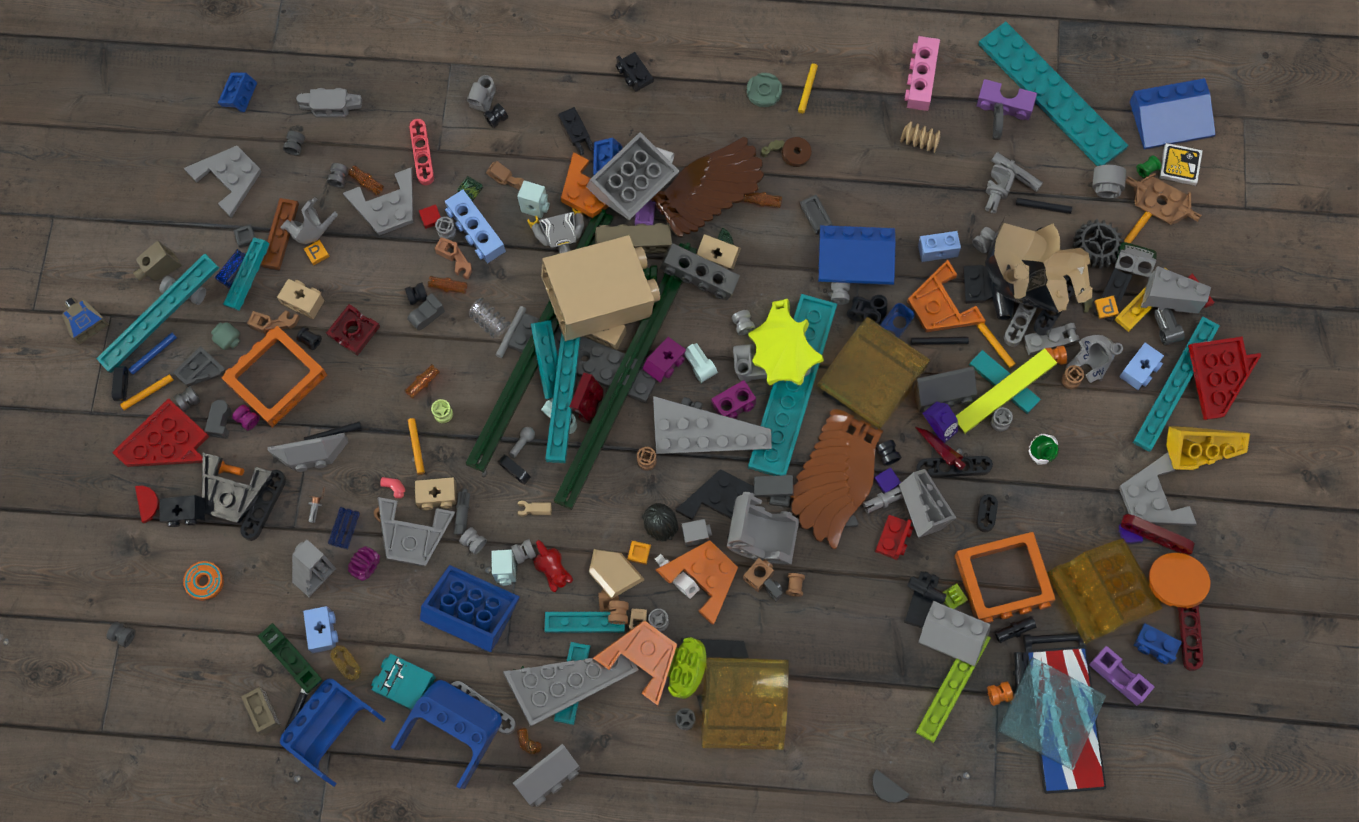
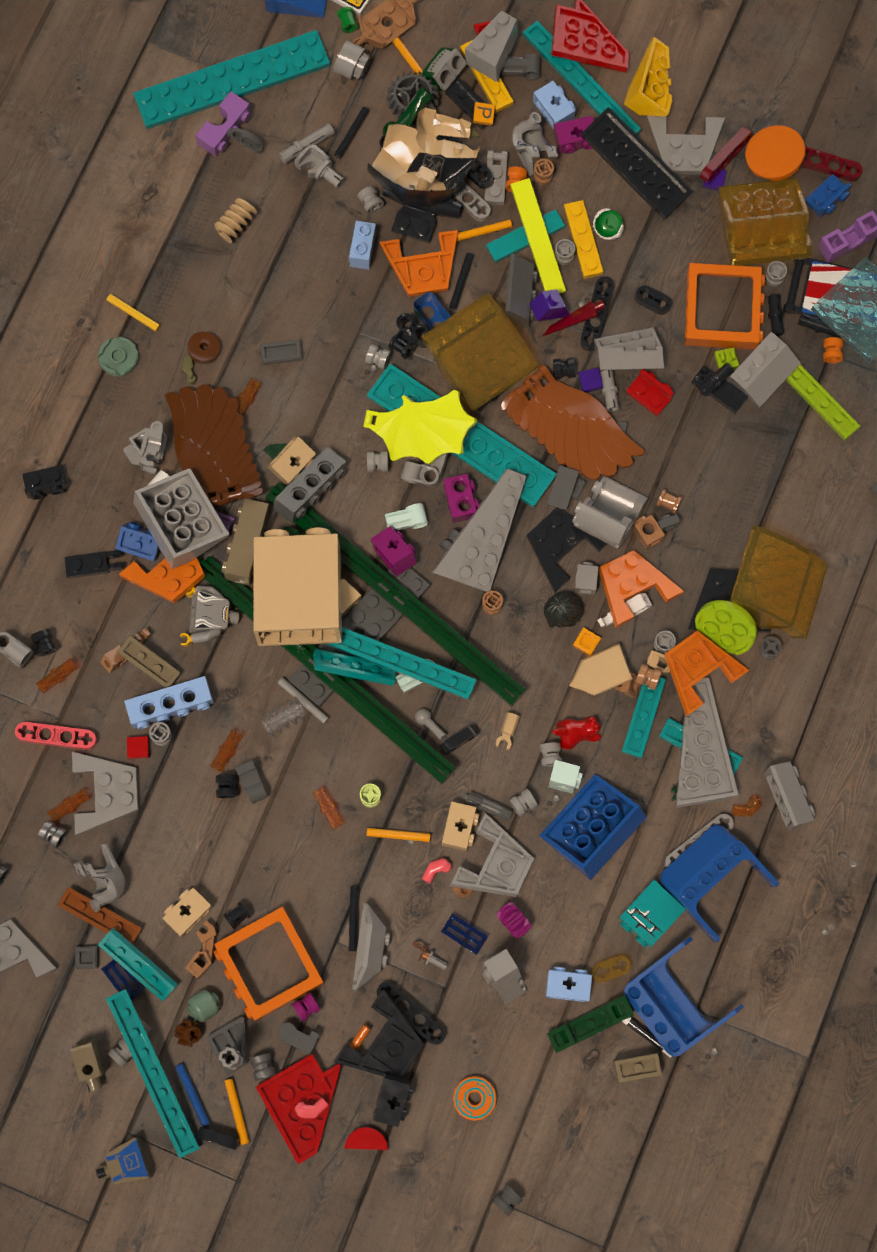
camera: 75 degrees left, 5 degrees up
(156, 447) = (311, 1111): none -> coral arm
(178, 365) = (225, 1055): none -> light grey axle
(200, 331) = (187, 1033): none -> reddish brown gear
(316, 252) = (136, 883): light orange tile -> none
(353, 341) = (242, 880): dark red brick -> none
(461, 263) = (204, 728): nougat piece -> none
(471, 187) = (118, 695): clear green tile -> none
(479, 139) = (56, 675): none -> clear orange pin
(503, 197) = (148, 661): none -> dark tan plate
(533, 199) = (164, 629): light aqua brick -> none
(587, 398) = (407, 640): dark red brick -> none
(689, 135) = (147, 447): none -> light grey piece
(856, 255) = (345, 326): blue slope -> none
(928, 48) = (139, 175): bright pink brick -> none
(1022, 433) = (583, 239): none -> yellow plate
(1059, 613) = (776, 269): none -> light grey wheel
(1094, 246) = (422, 97): none -> dark green plant
(1113, 454) = (636, 163): none -> black plate
(1120, 384) = (565, 135): none -> magenta brick

